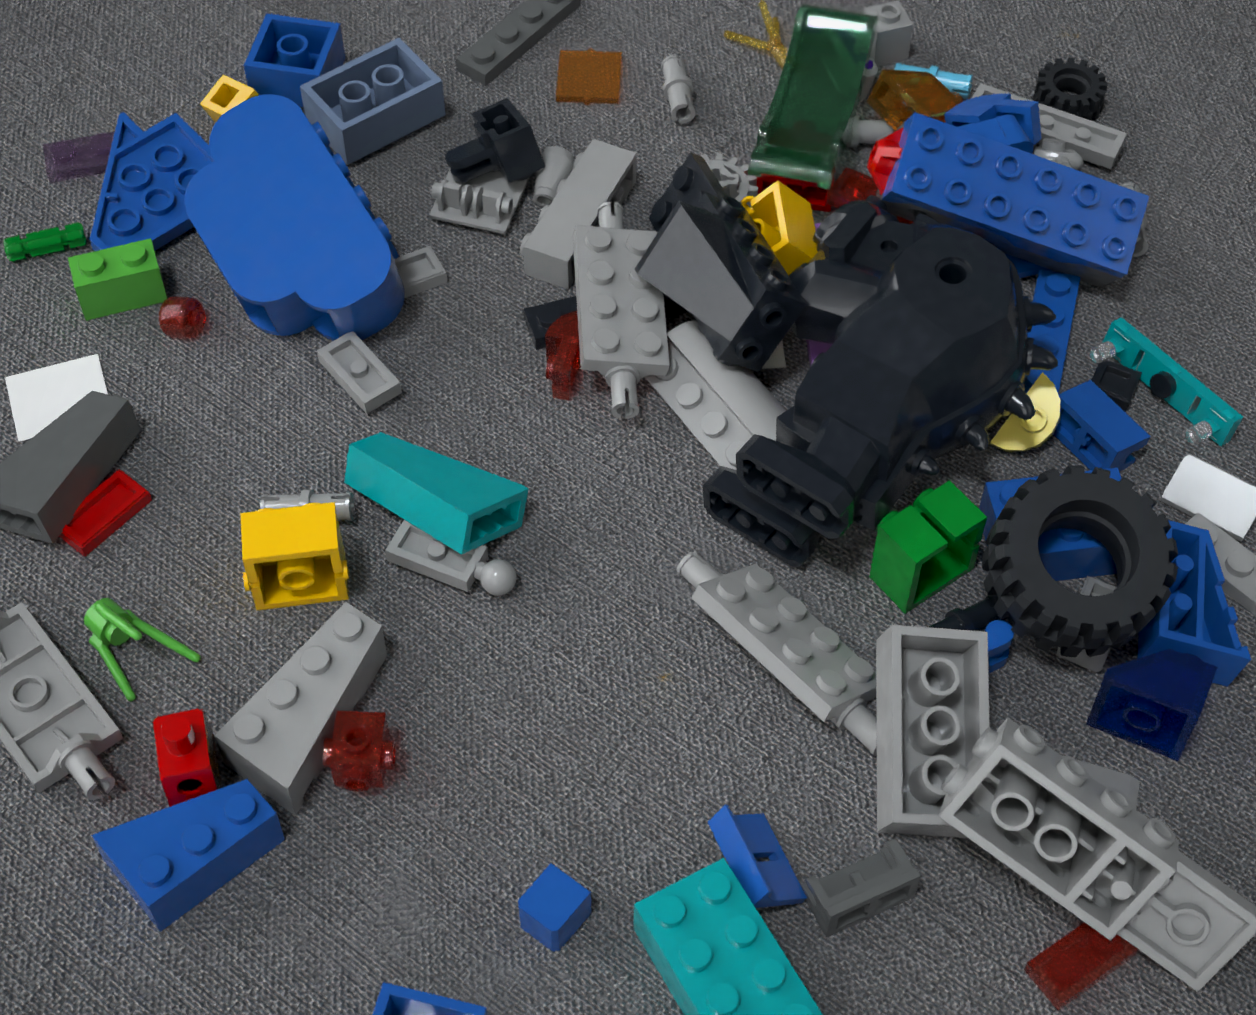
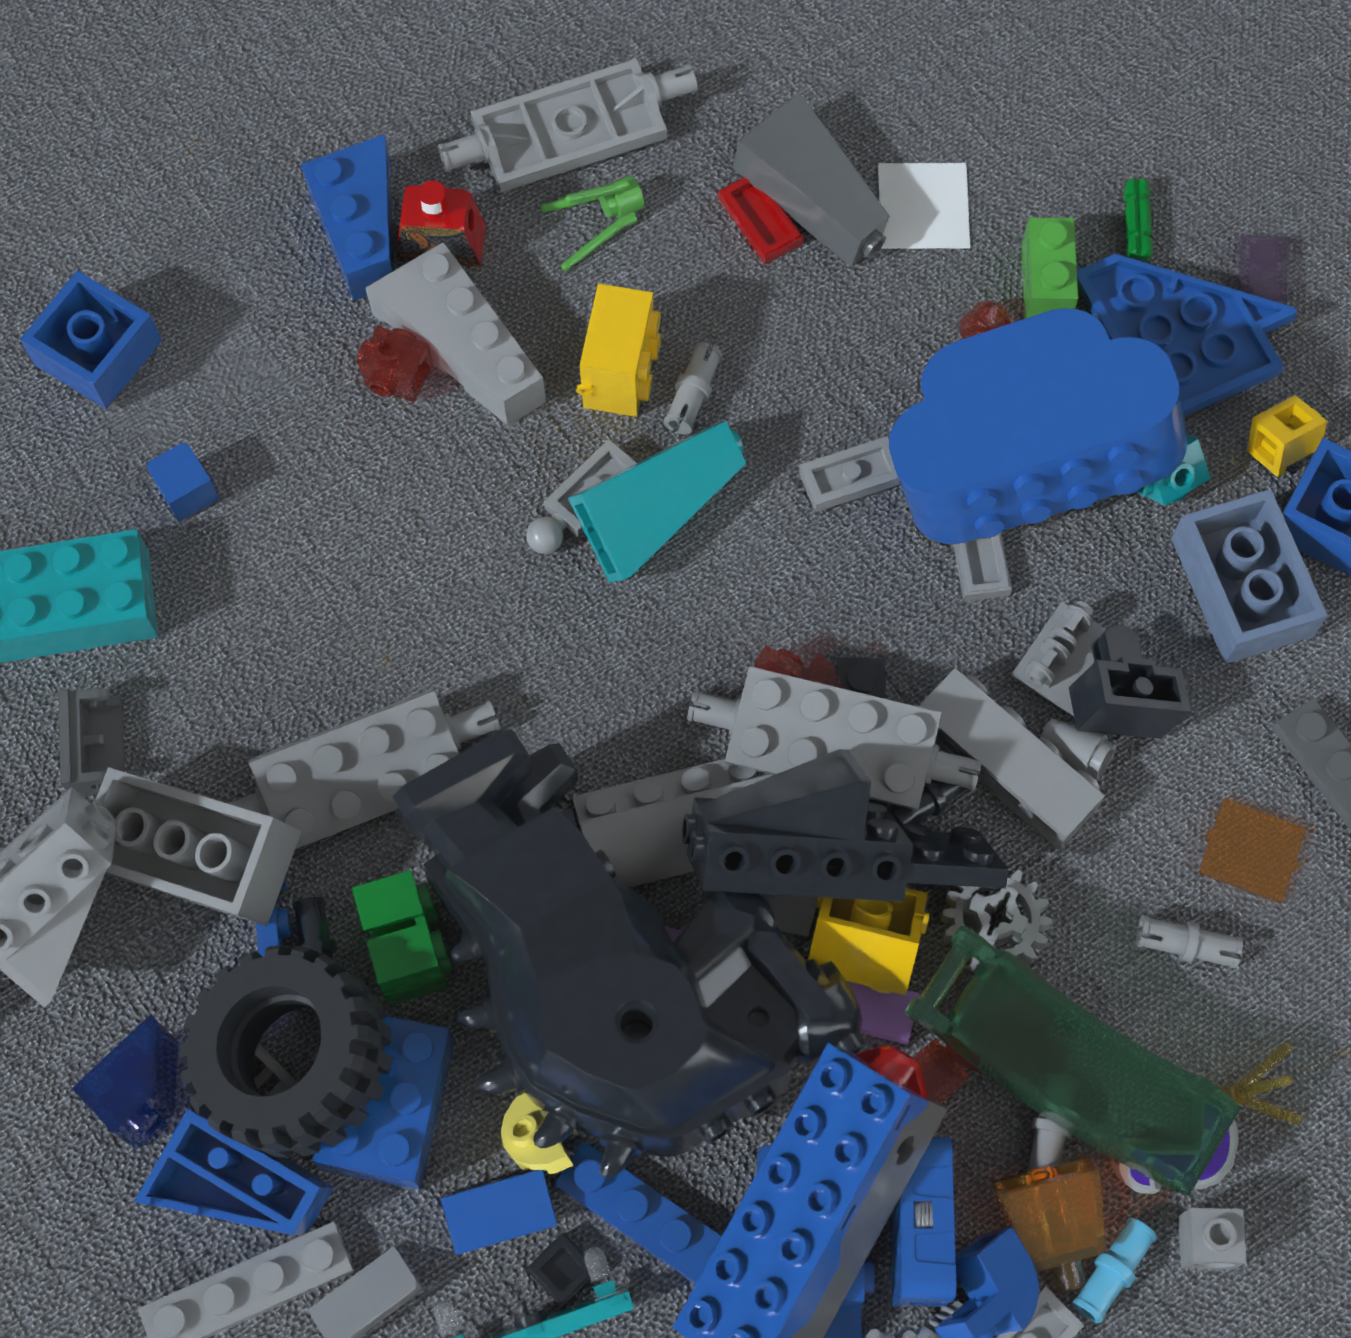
camera: 110 degrees right, 15 degrees up
(751, 837) = (127, 661): blue piece -> none

